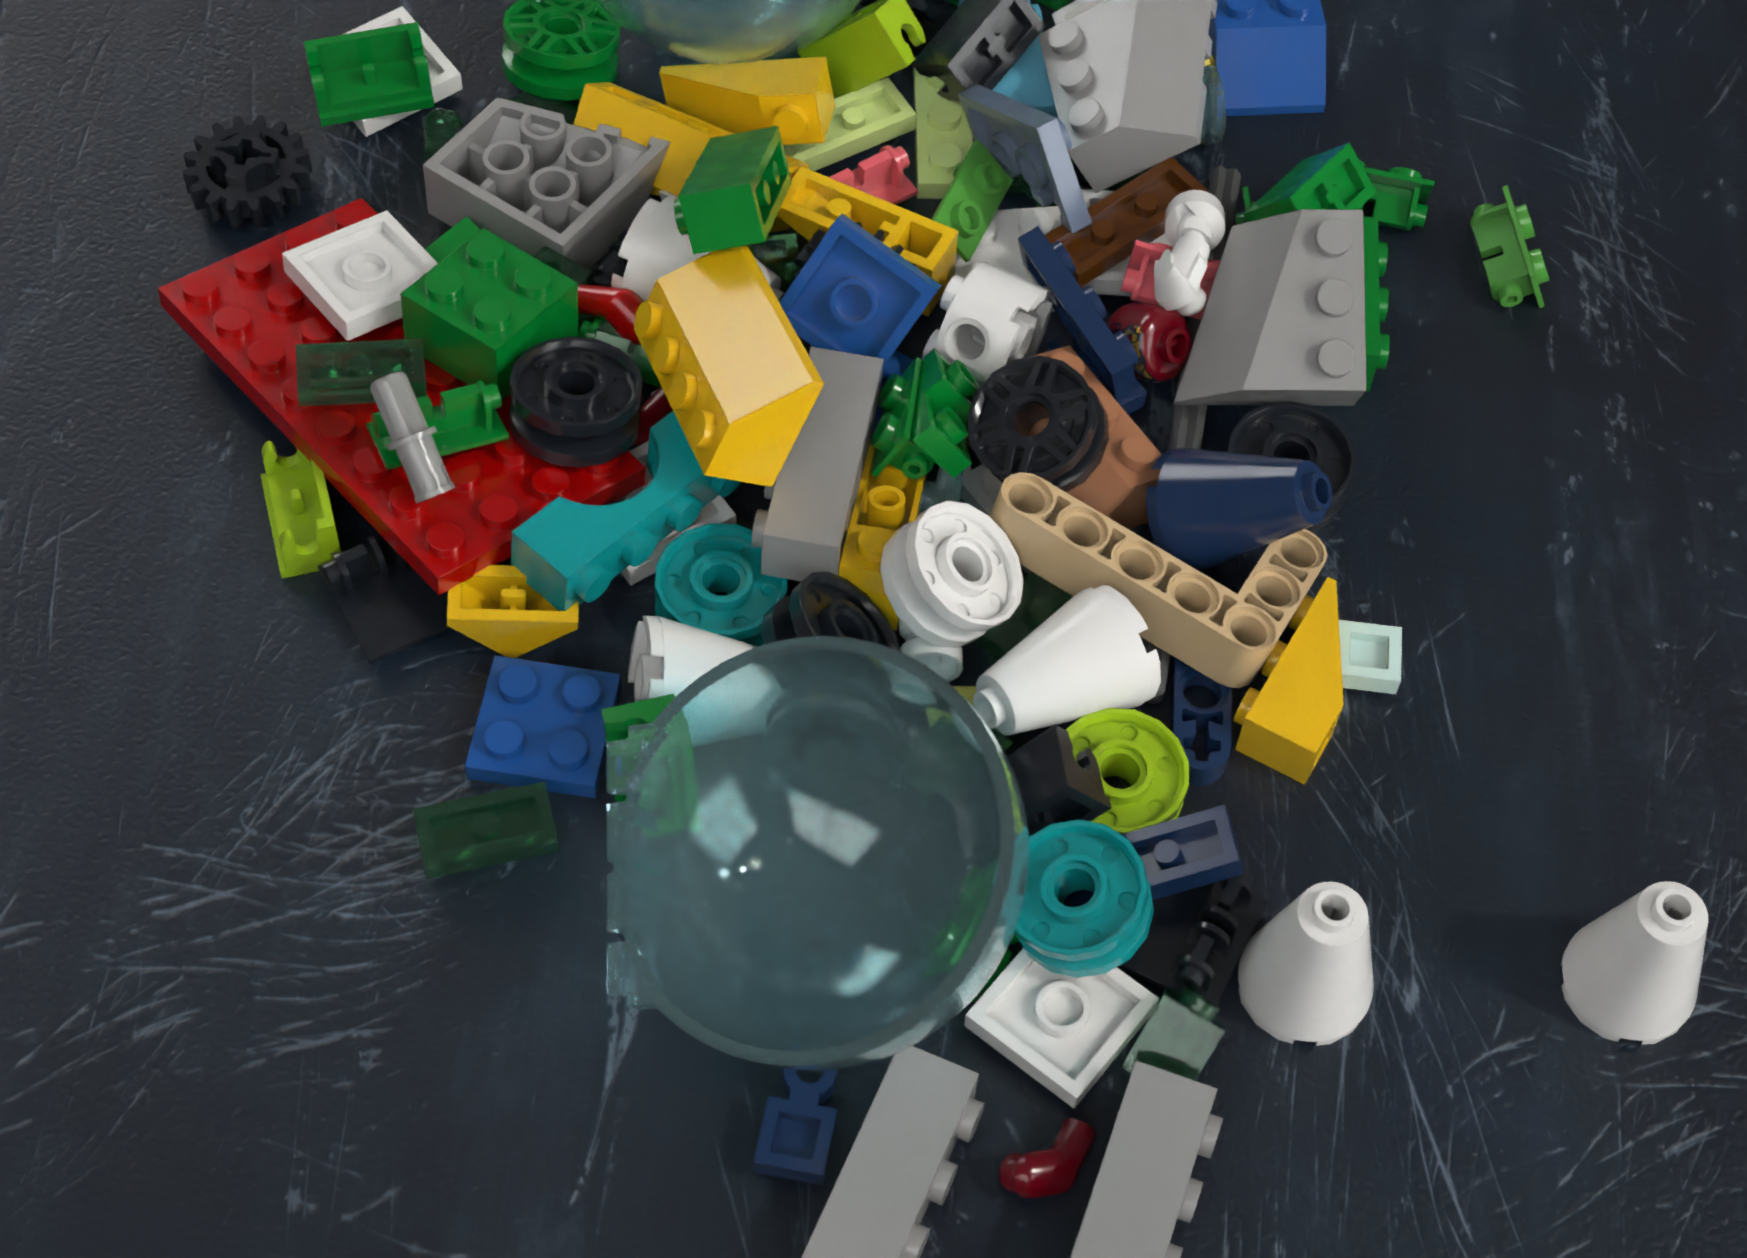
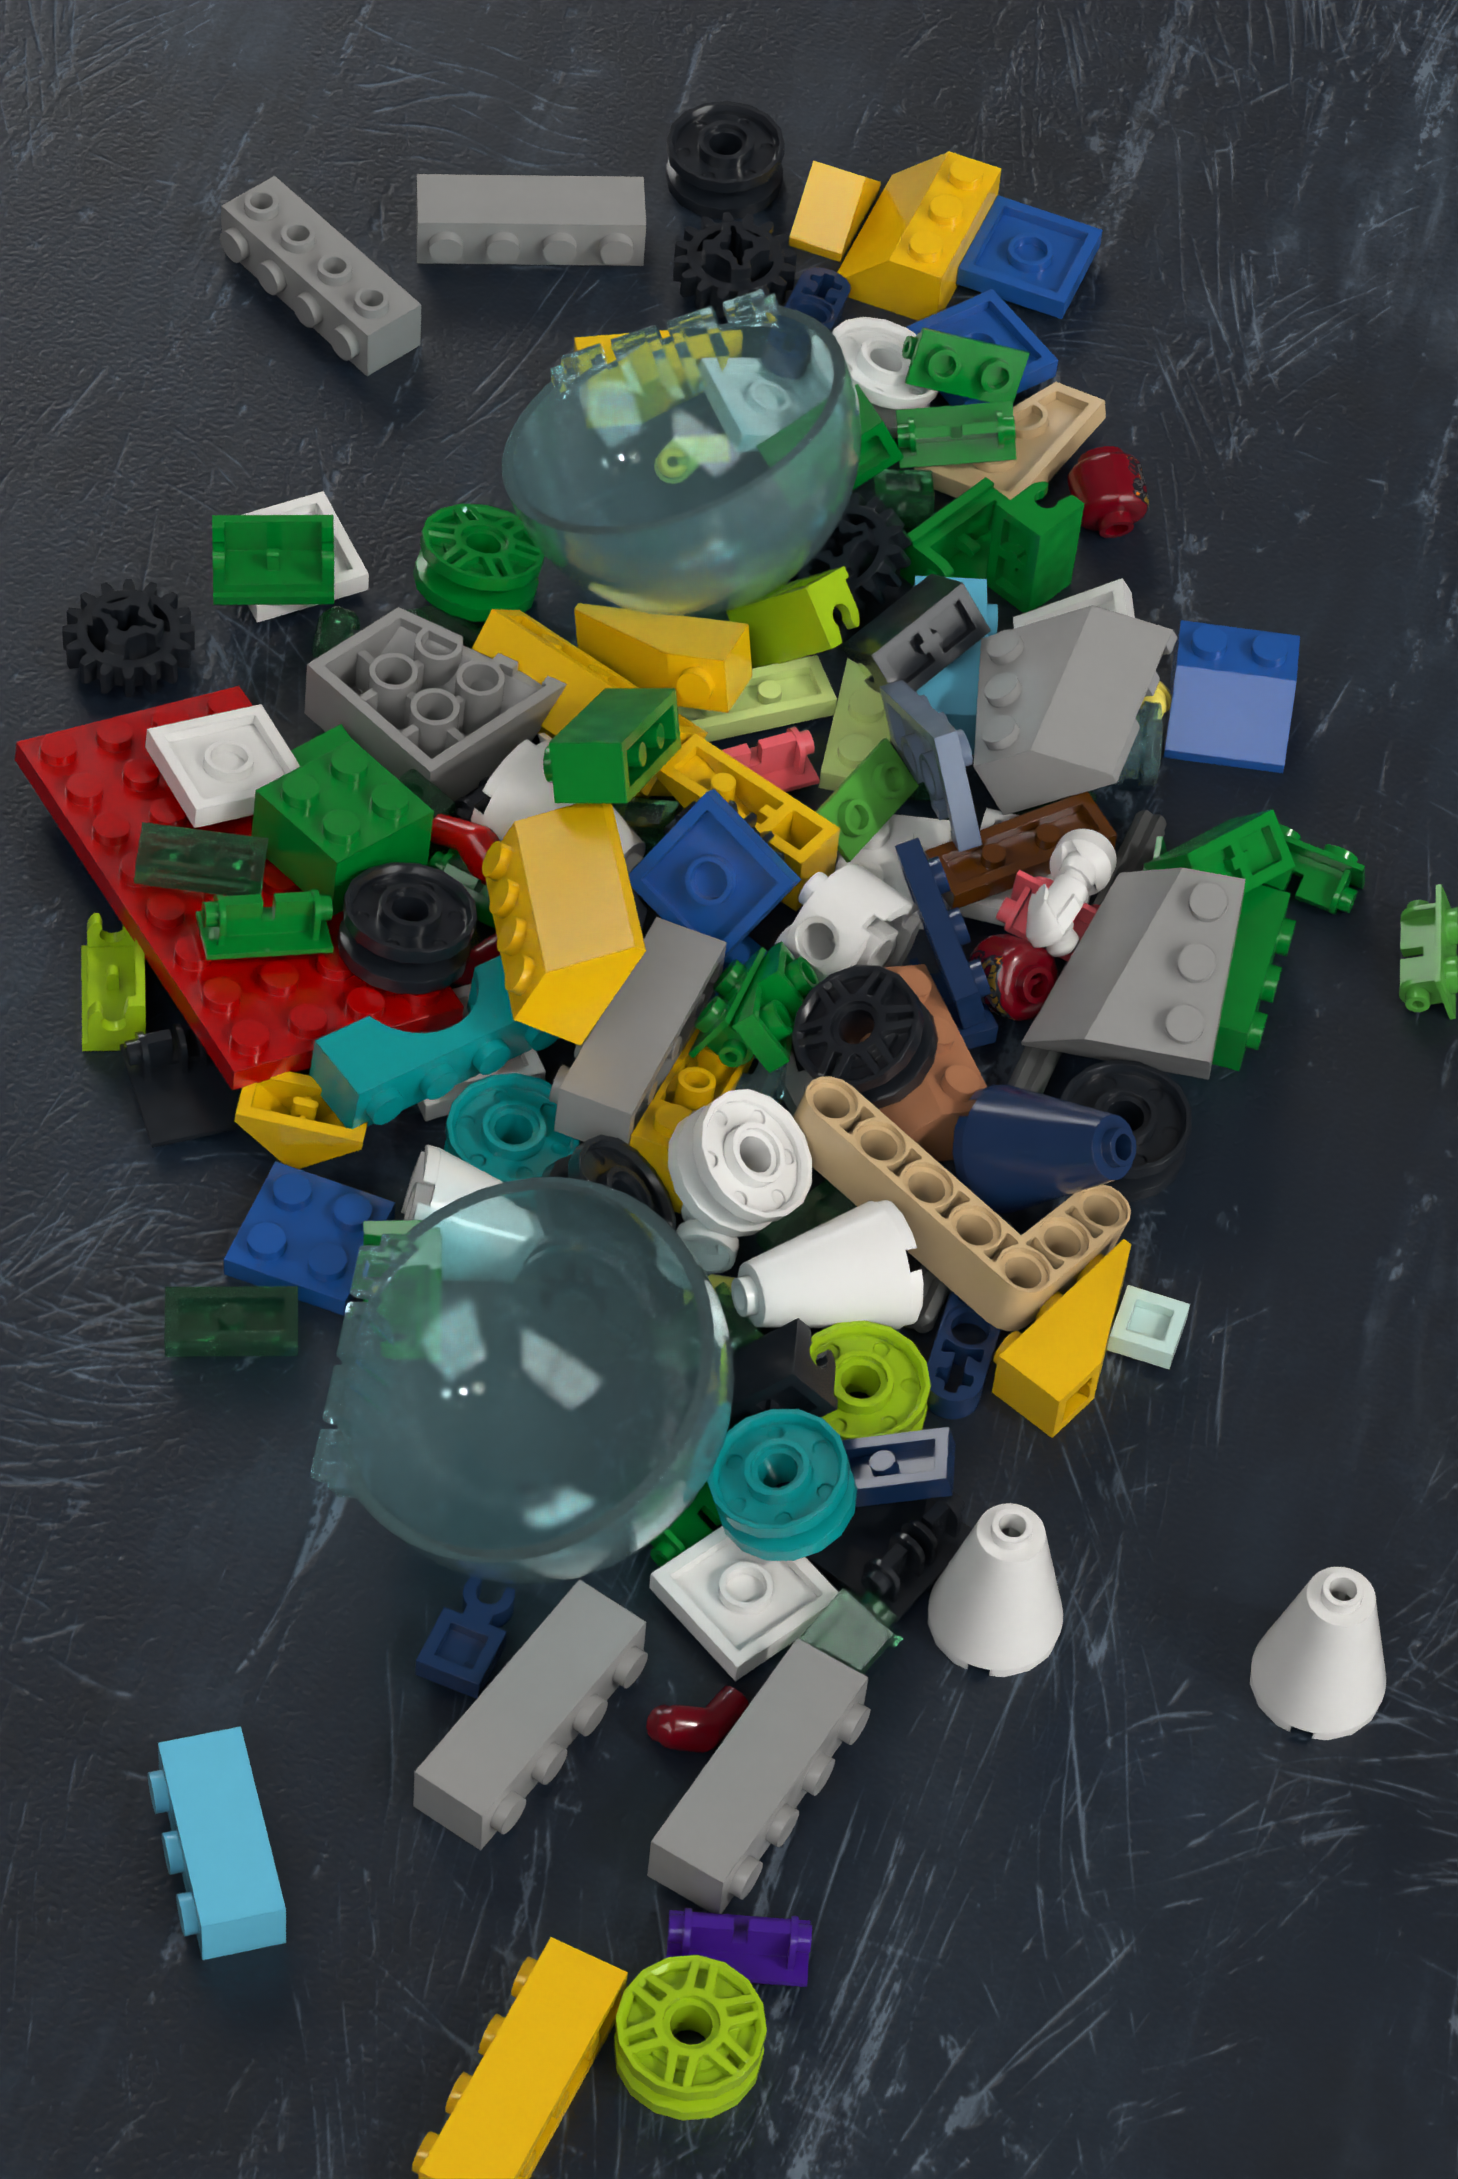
camera: 10 degrees right, 5 degrees down
(411, 436) = (236, 930): light grey axle -> none

